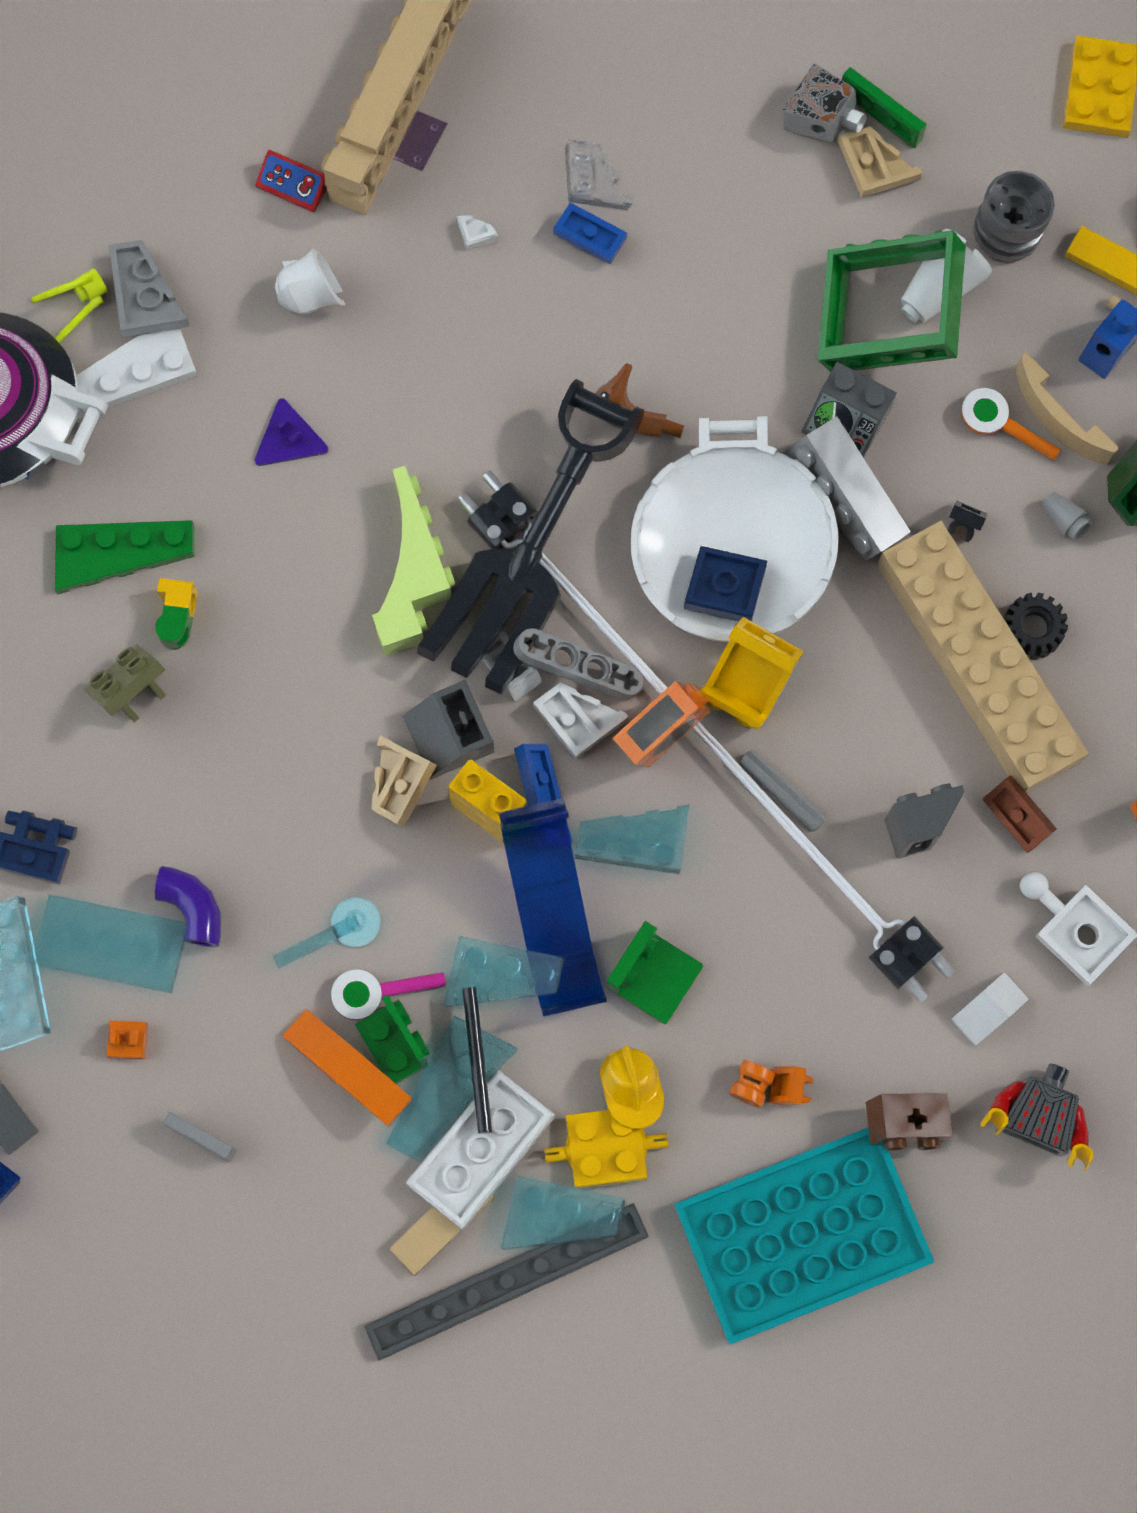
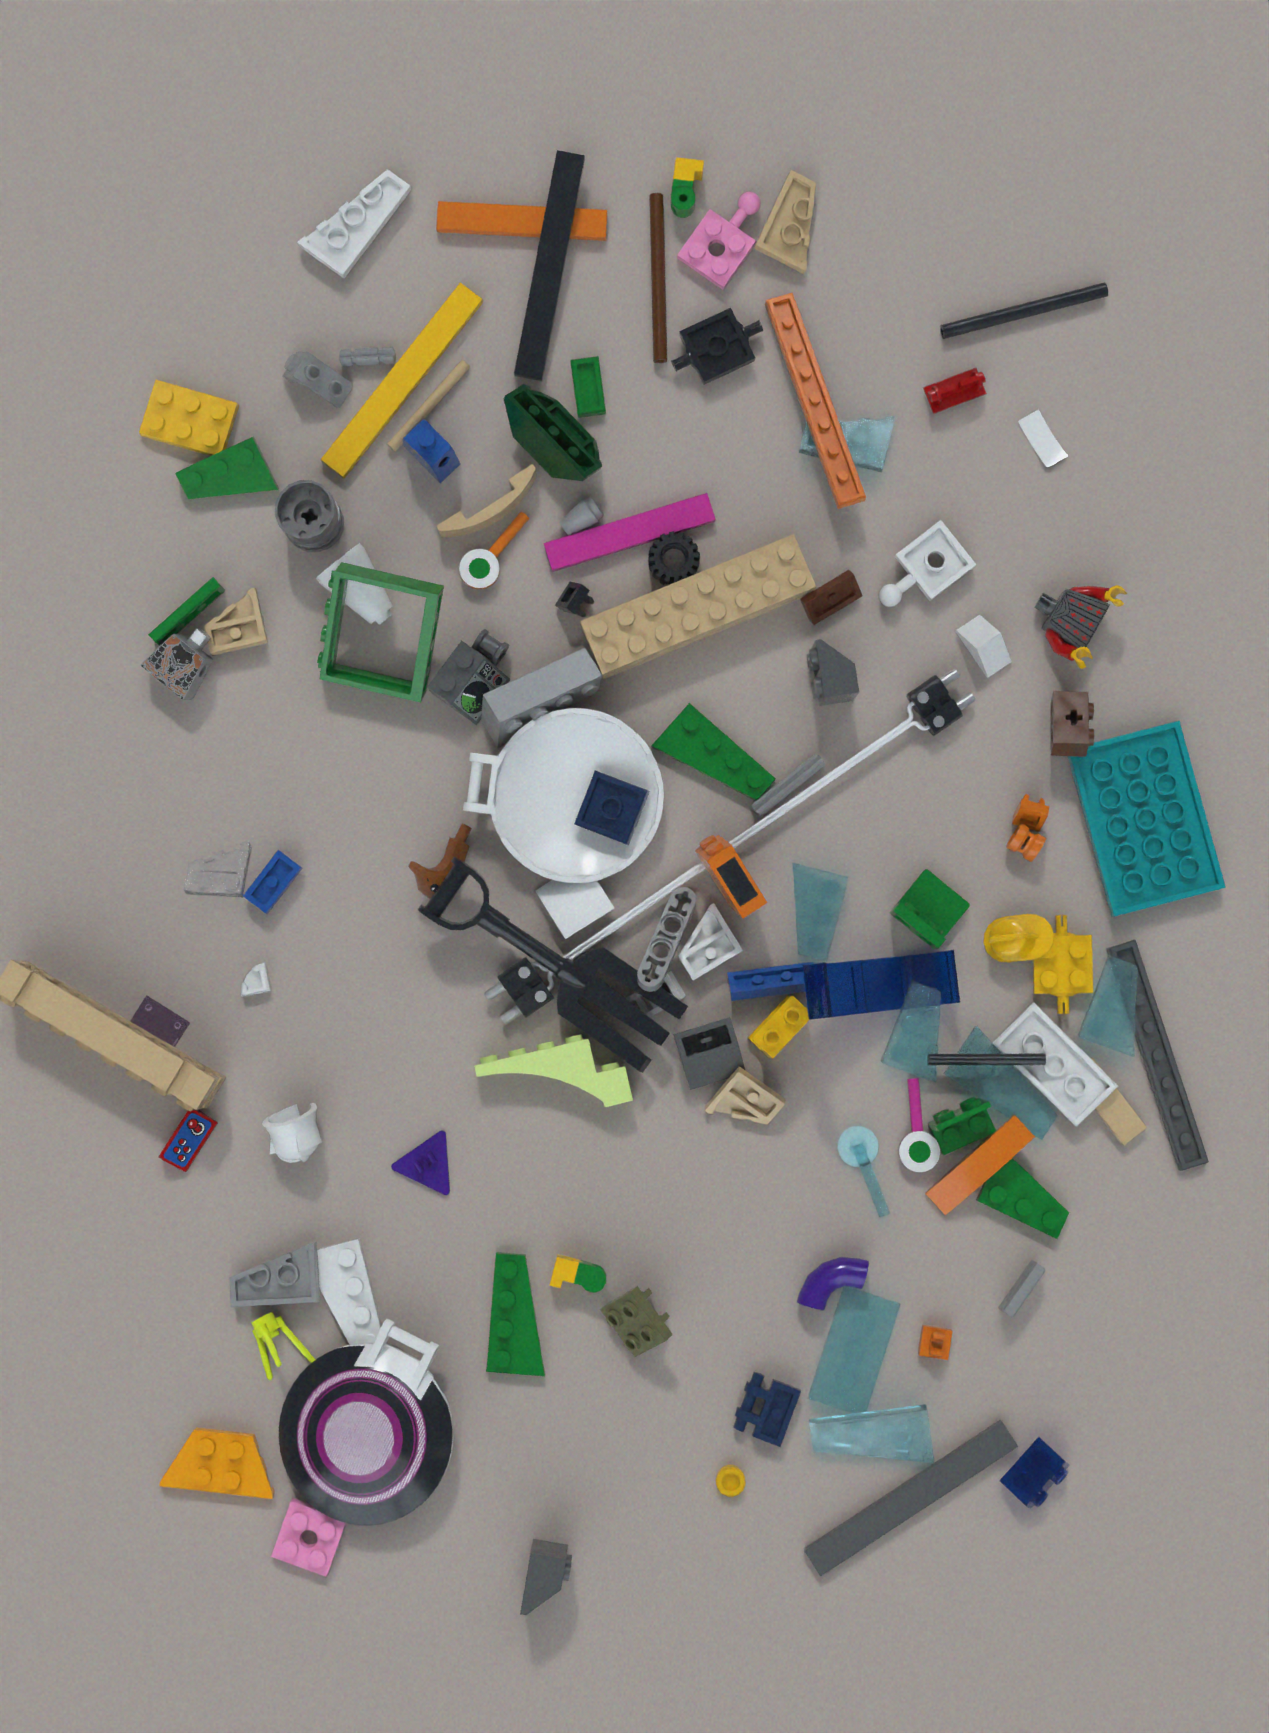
camera: 85 degrees left, 10 degrees up
(311, 1128) = (1024, 1199): none -> green wing
(605, 560) = (574, 904): none -> white slope
(751, 674) = (693, 797): yellow panel -> none
(808, 699) = (706, 748): none -> green wing
(894, 432) = (490, 647): none -> dark grey bush
(1049, 131) = (229, 472): none -> green wing
(1058, 574) = (629, 532): none -> dark pink tile

